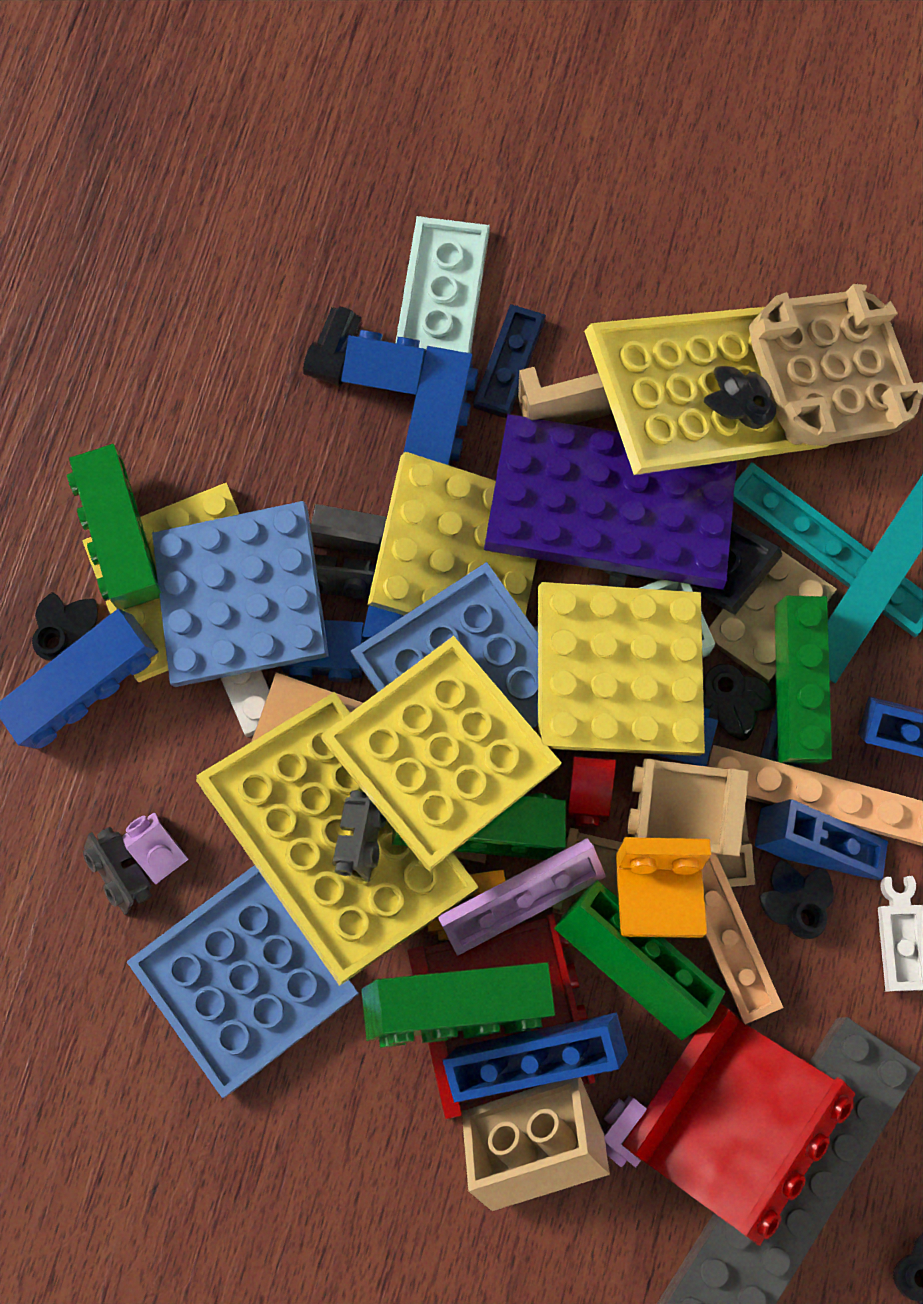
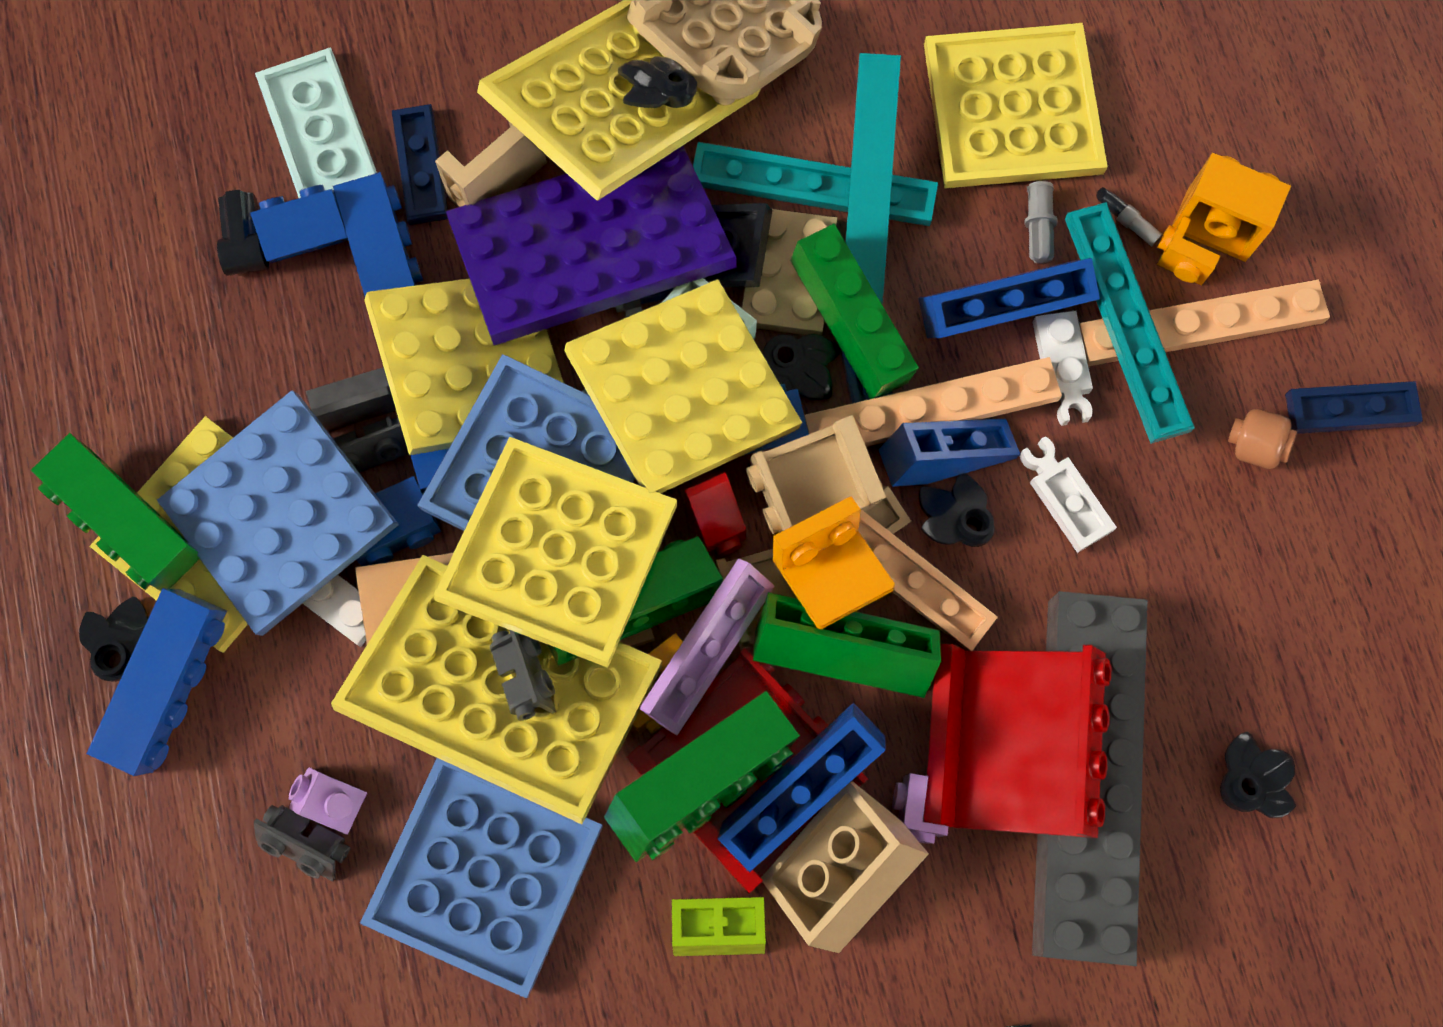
camera: 35 degrees left, 0 degrees up
(405, 1131) = (718, 926): none -> lime hinge

